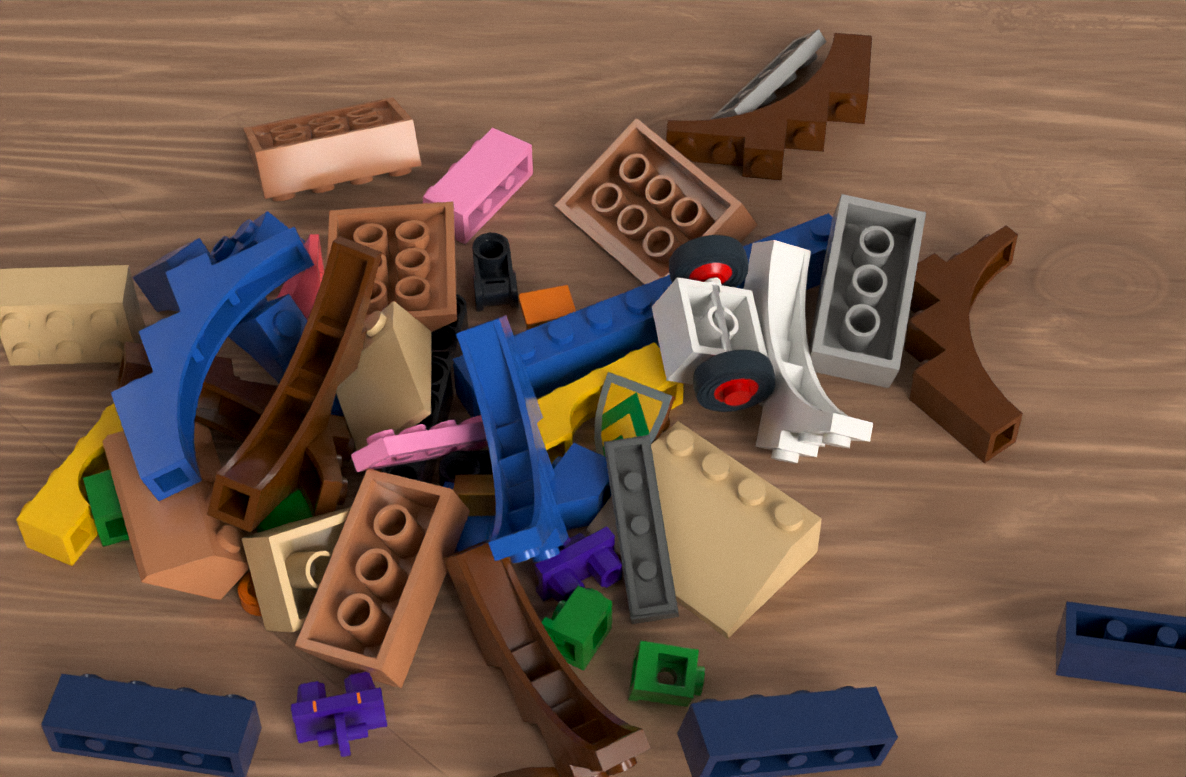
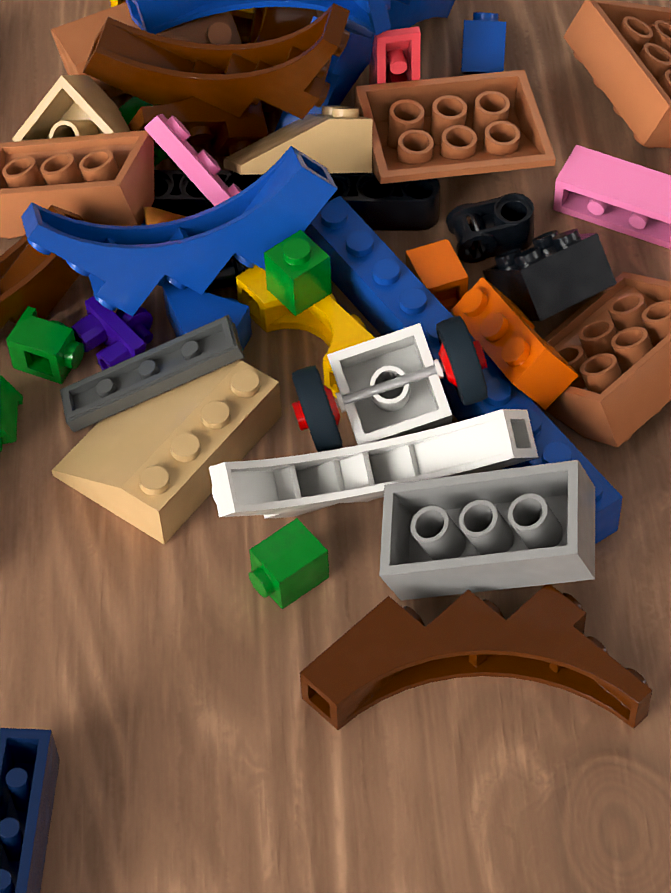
camera: 85 degrees right, 5 degrees up
(559, 242) = (552, 273): none -> black slope
(562, 385) = (298, 272): none -> green brick
(630, 411) = (286, 354): shield -> none
(644, 259) = (513, 343): none -> orange arch
(865, 459) = (288, 564): none -> green brick

